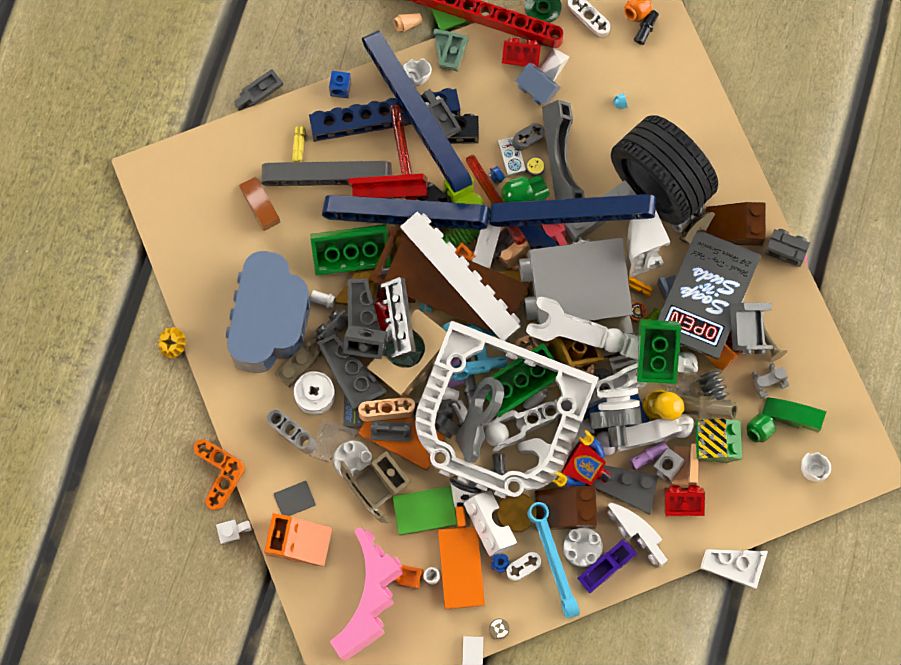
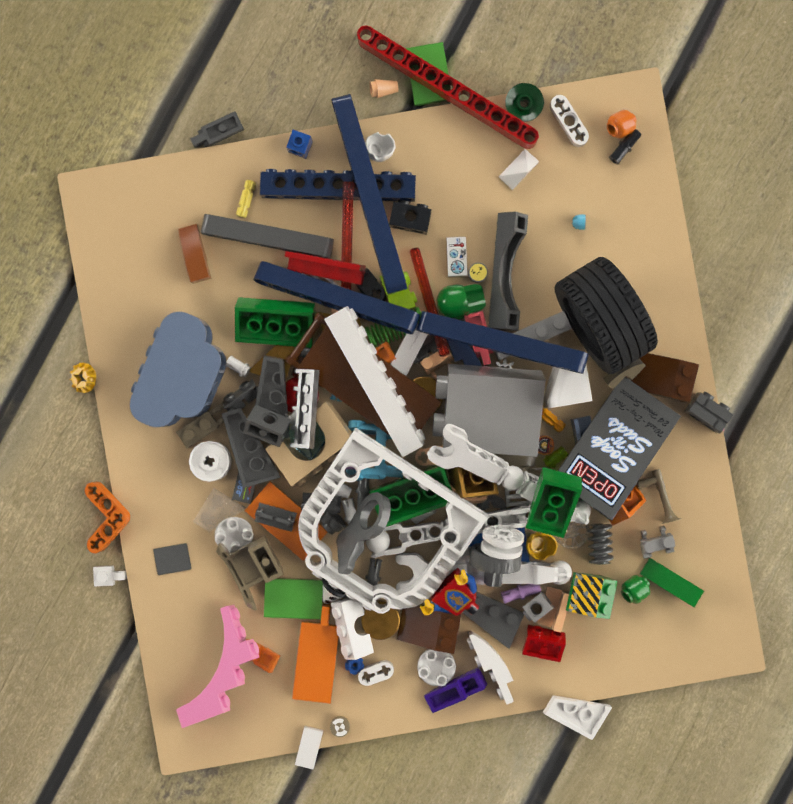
camera: 10 degrees right, 15 degrees up
(287, 424) = (172, 492): light grey beam -> none
(297, 540) = (165, 603): slope -> none
(372, 405) = (261, 498): light nougat beam -> none
(429, 574) = (285, 660): white hinge -> none
(441, 114) = (393, 202): dark grey hinge -> none
(450, 48) = (419, 128): sand green wing -> none
(496, 175) = (437, 274): blue plate -> none
(521, 53) = (491, 148): red bracket -> none
(525, 133) = (478, 244): dark grey beam -> none
(537, 84) = (499, 186): sand blue brick -> none
(568, 602) = (410, 718): medium azure piece -> none
(668, 406) = (550, 555): yellow hair -> none
(709, 408) = (588, 563): dark tan piece -> none
(748, 327) = (649, 491): panel -> none
(815, 467) = (679, 639): white hair -> none

